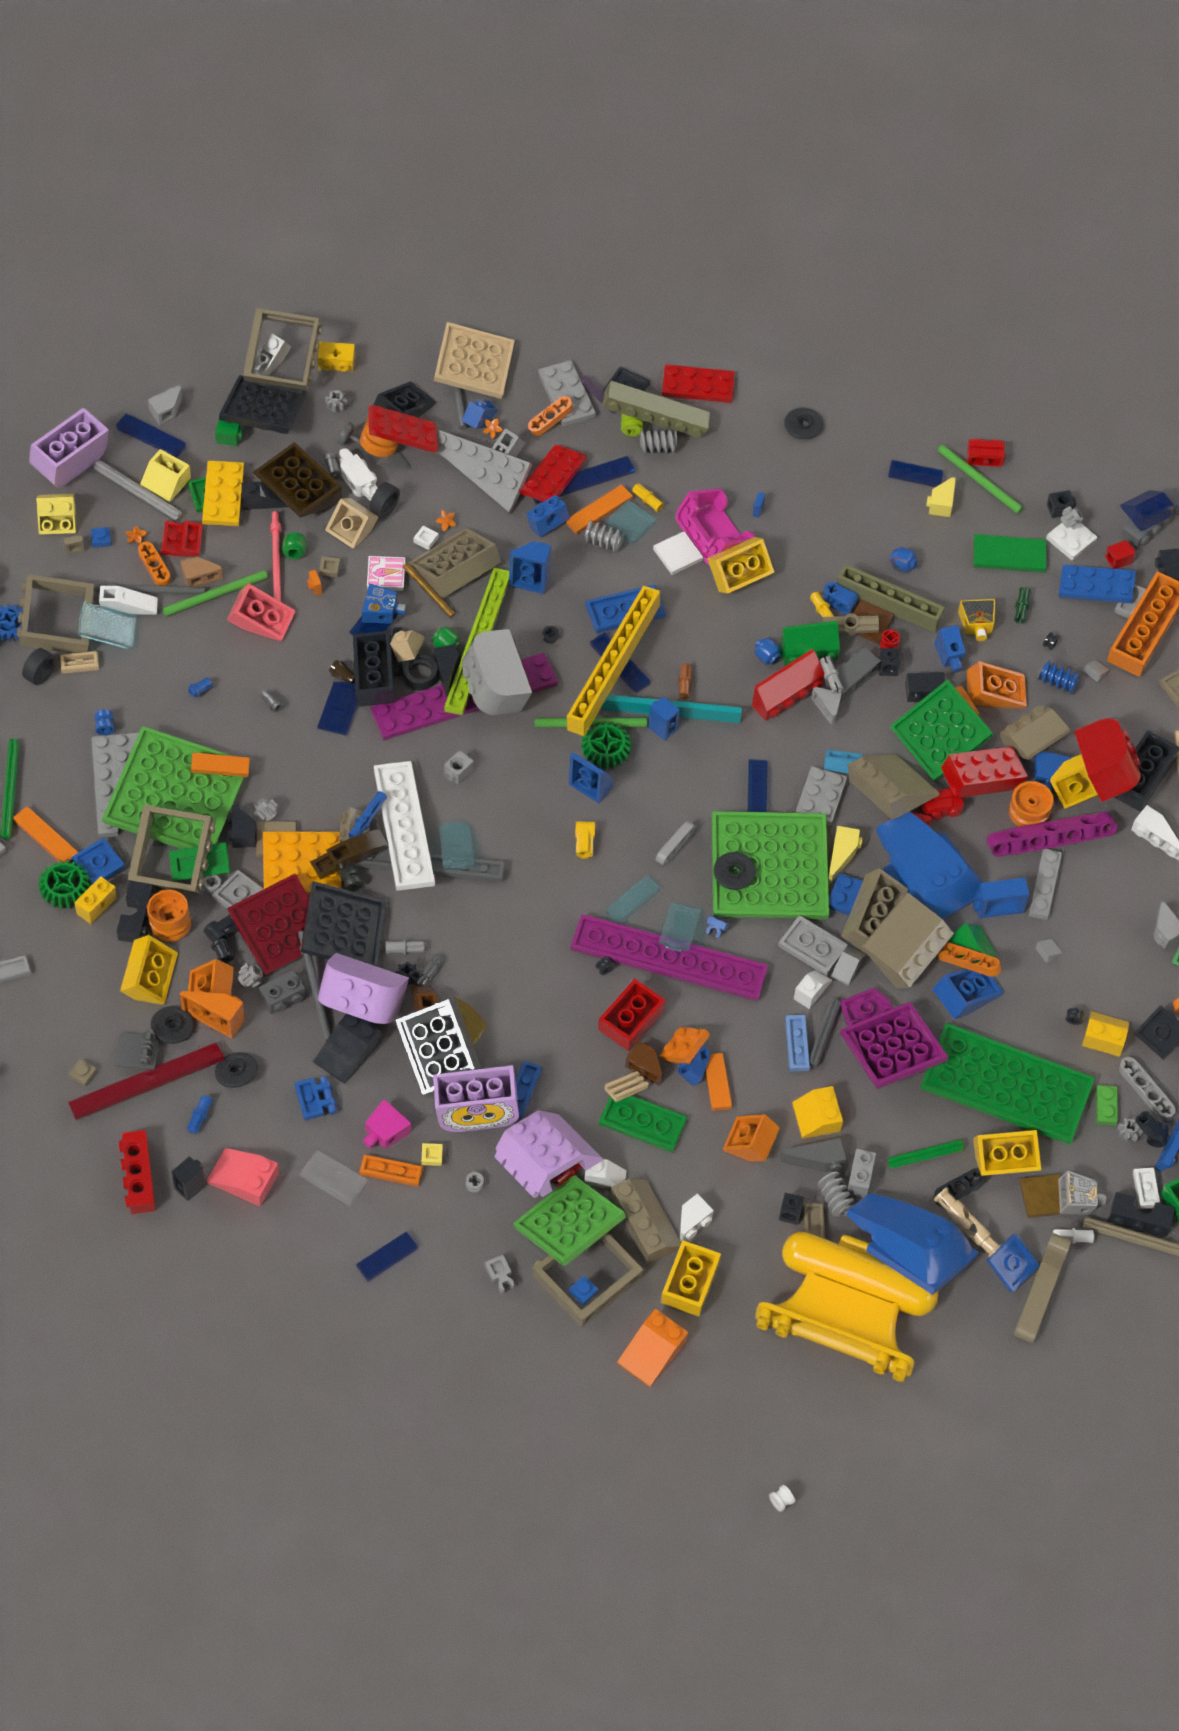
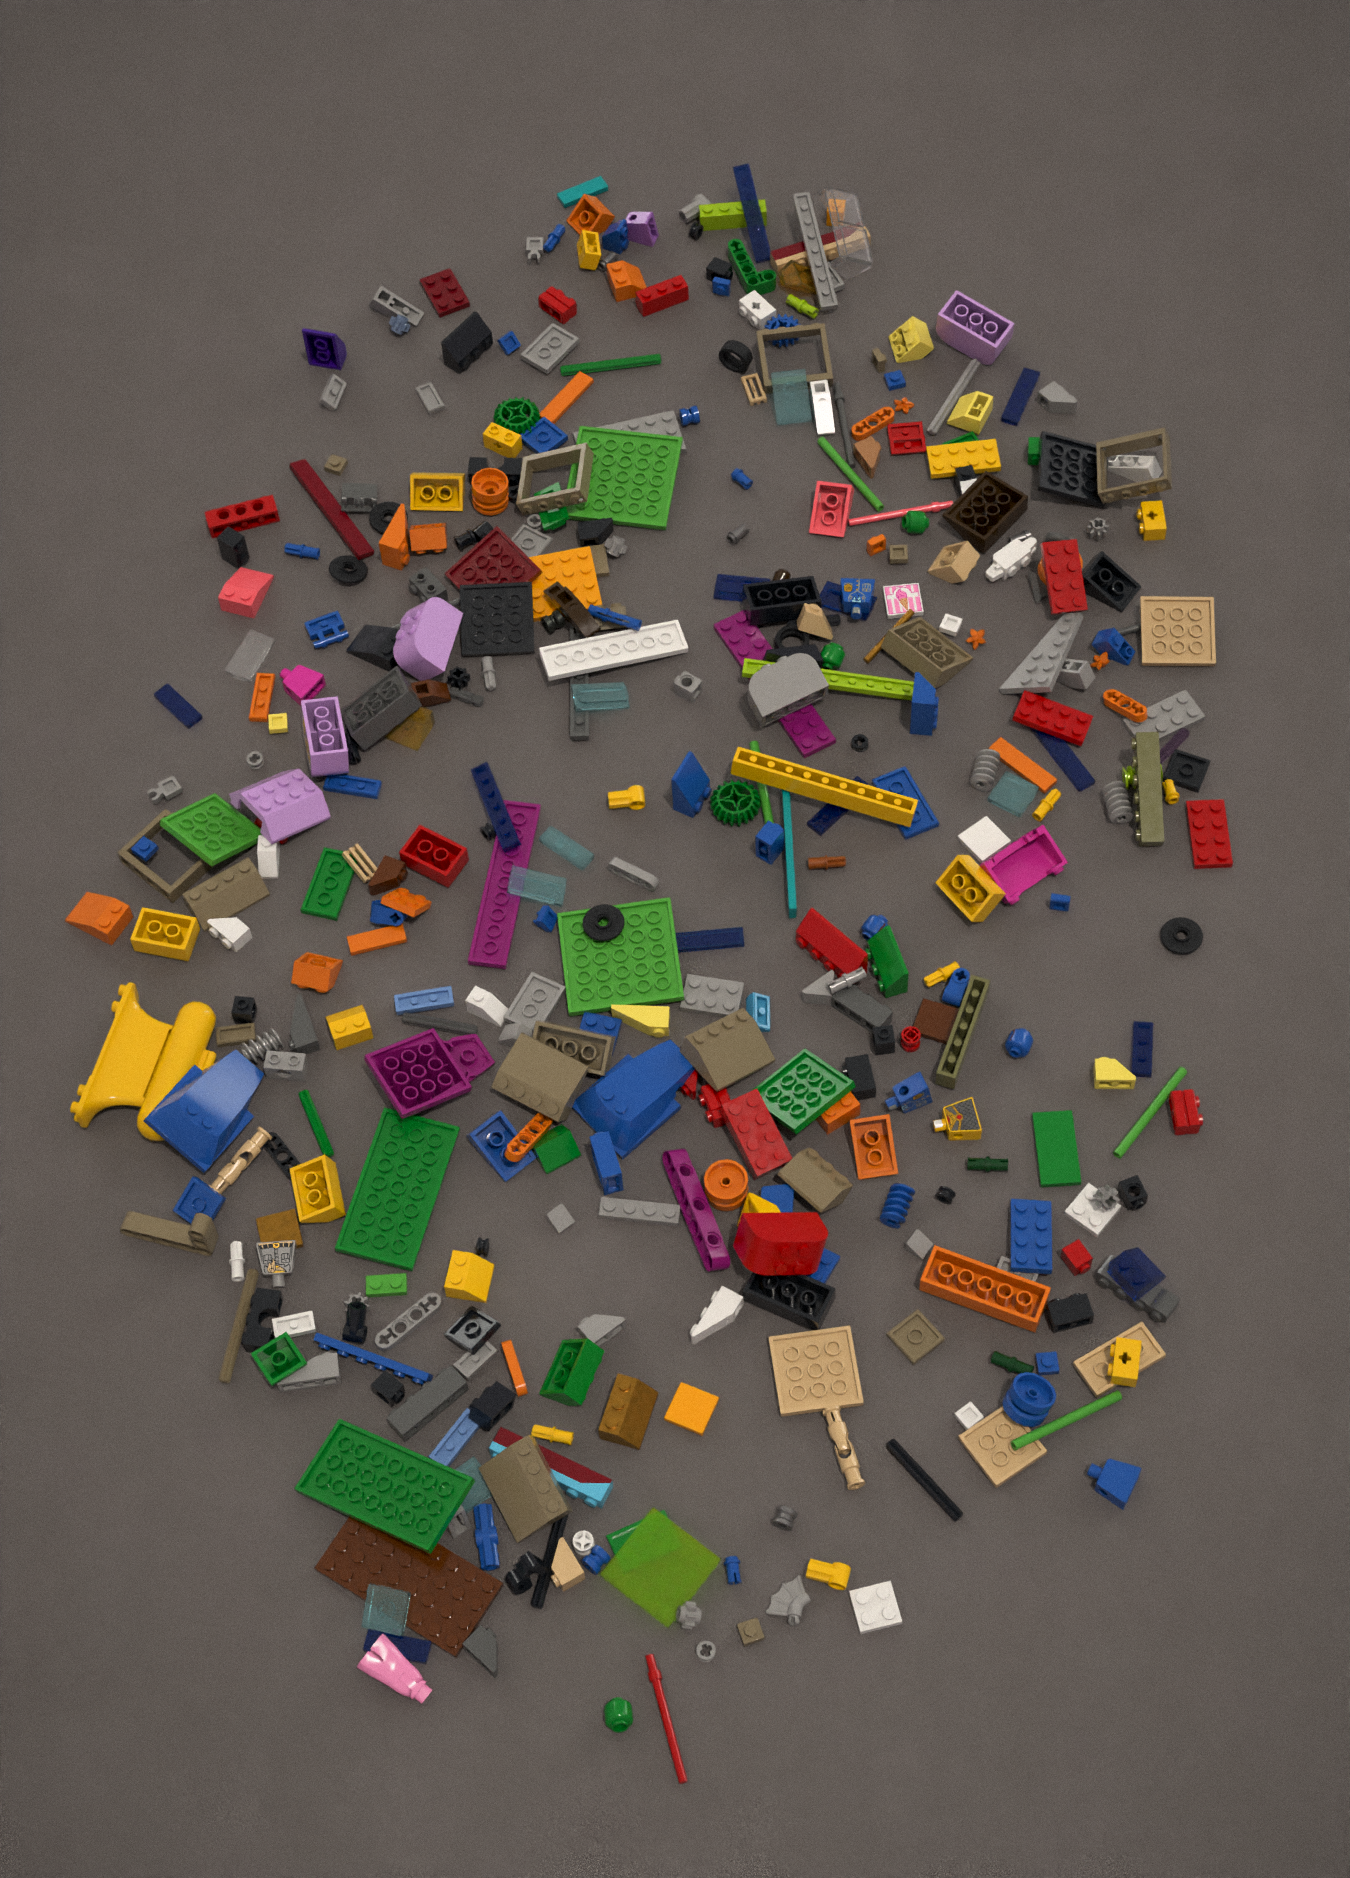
camera: 90 degrees right, 0 degrees up
(220, 764) = (654, 502): orange tile -> none
(250, 975) = (445, 559): light grey gear -> none
(384, 500) = (977, 587): black tyre -> none
(547, 515) = (996, 717): blue brick -> none
(578, 953) = (496, 807): none -> clear blue tile
(862, 624) = (921, 1005): dark tan piece -> none

